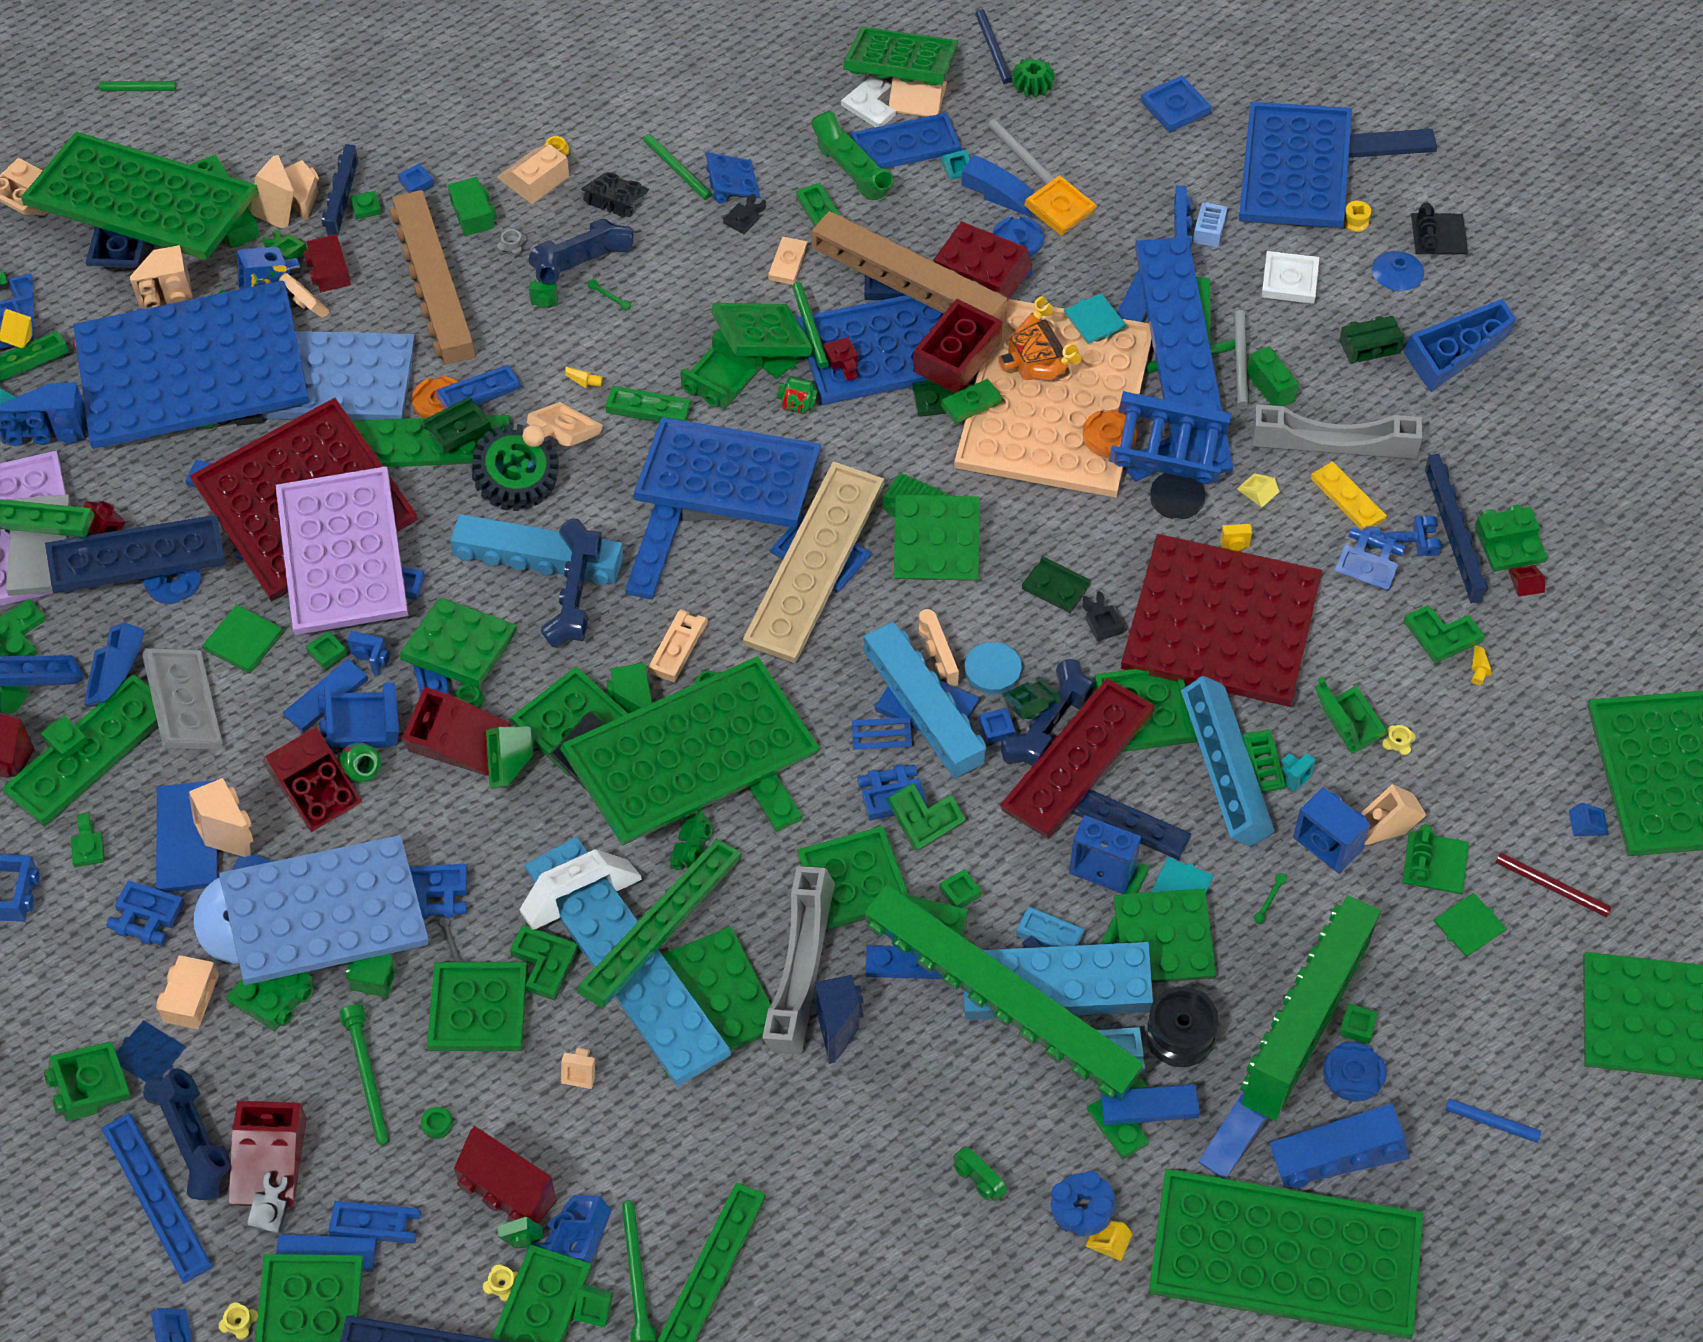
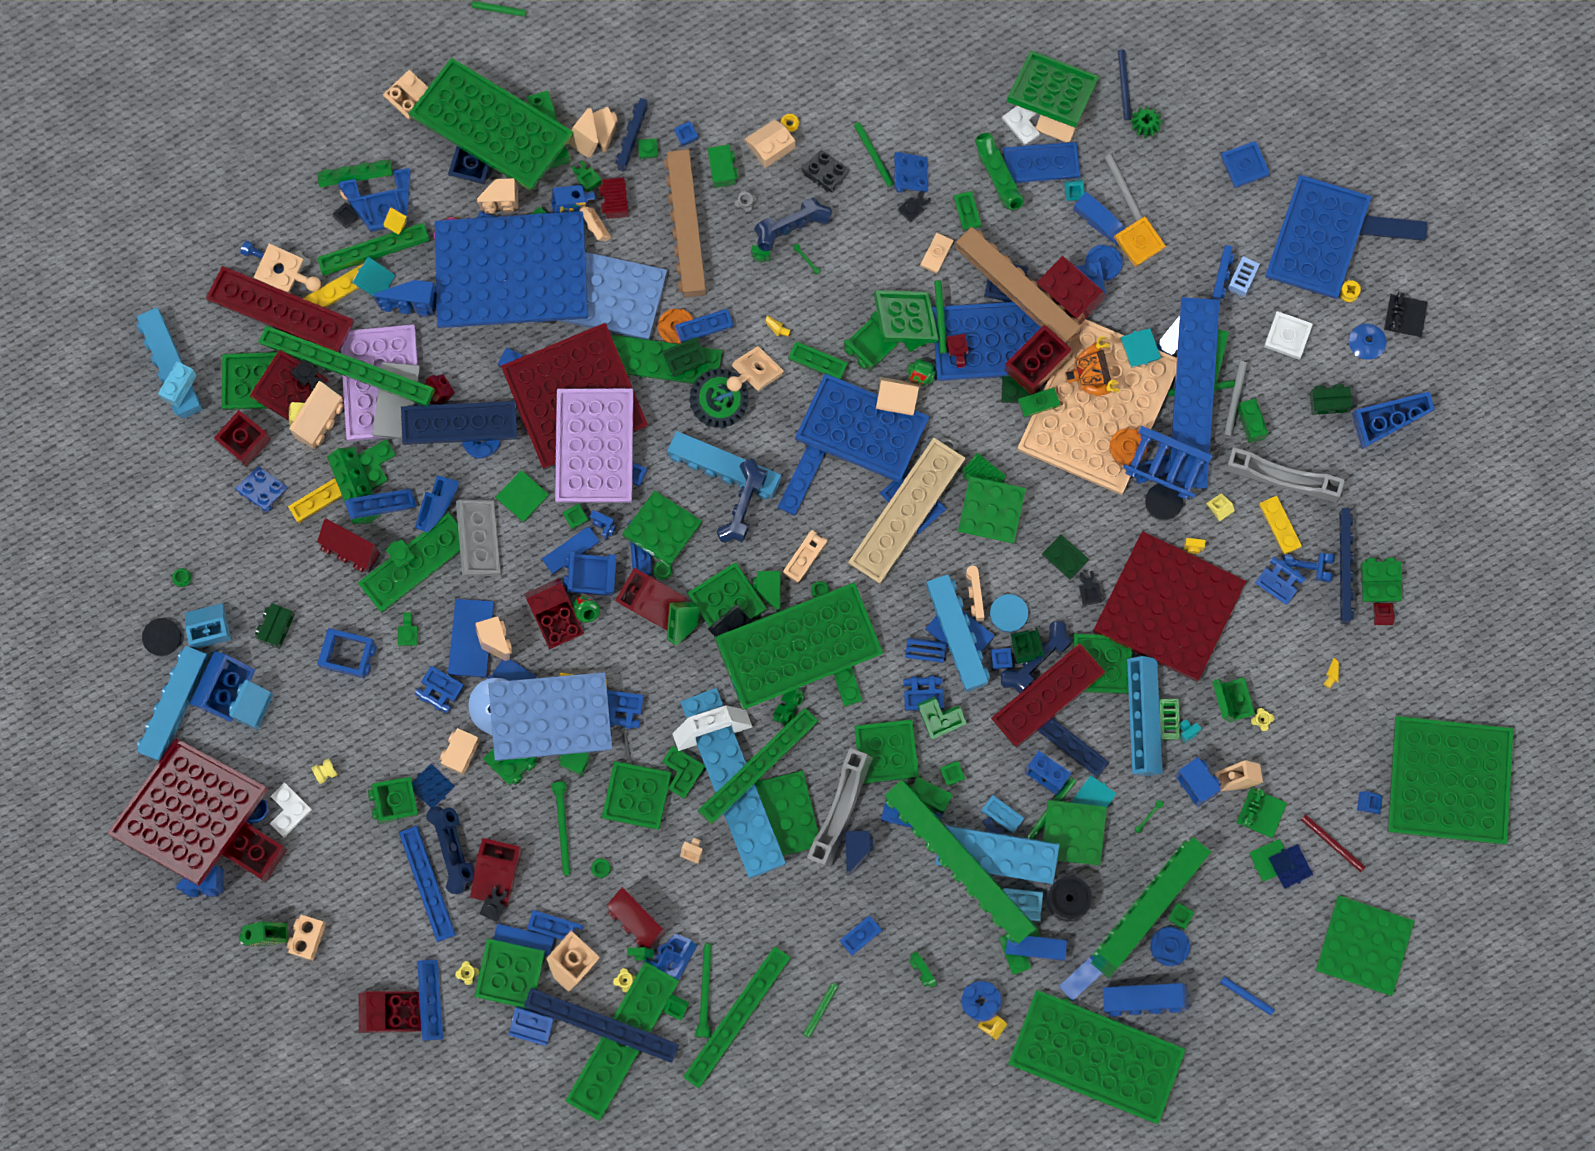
camera: 15 degrees right, 20 degrees up
(408, 1264) = (571, 961): none -> light nougat slope
(769, 423) = (897, 396): none -> light nougat slope
(829, 1269) = (820, 1010): none -> green bar
(869, 1143) = (860, 935): none -> blue plate
(1442, 640) = (1310, 650): green plate -> none
(1501, 926) = (1290, 866): none -> clear blue piece

